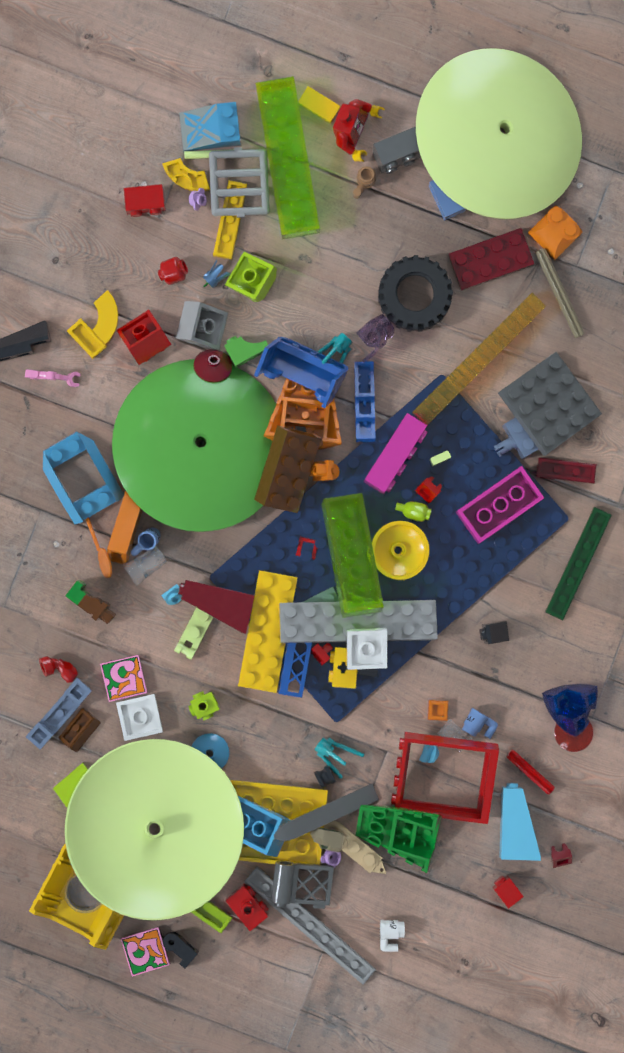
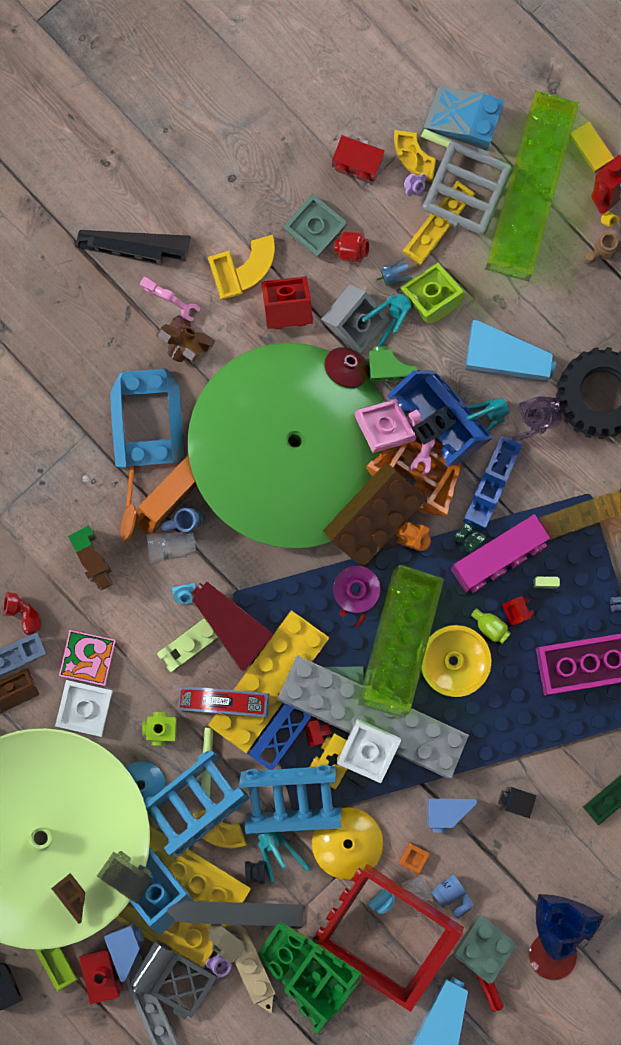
camera: 20 degrees right, 5 degrees down
(80, 404) = (184, 340): none -> reddish brown plant
(136, 267) = (314, 225): none -> sand green plate
(197, 860) = (71, 896): none -> reddish brown tile
(231, 301) = (398, 309): none -> teal plant
(231, 827) = (125, 877): none -> clear smoke brick
(241, 663) = (223, 701): none -> slope
(251, 714) = (207, 746): none -> yellowish green bar
(255, 878) = (124, 948): none -> medium blue slope
(263, 397) = (385, 426): none -> bright pink tile
(273, 748) = (214, 812): none -> dark azure fence
(282, 760) = (224, 834): none -> yellow tile
(284, 383) = (423, 457): none -> bright pink piece
(300, 379) = (434, 425): none -> black leg
(310, 533) = (361, 600): none -> magenta dish
(330, 298) = (505, 355): none -> medium azure slope
(333, 726) = (292, 820): none -> dark azure fence
(371, 452) = (474, 540): none -> clear green wheel
(380, 708) = (366, 847): none -> yellow dish
(446, 665) = (447, 812): none -> medium blue slope
(521, 752) = (484, 949): none -> sand green plate

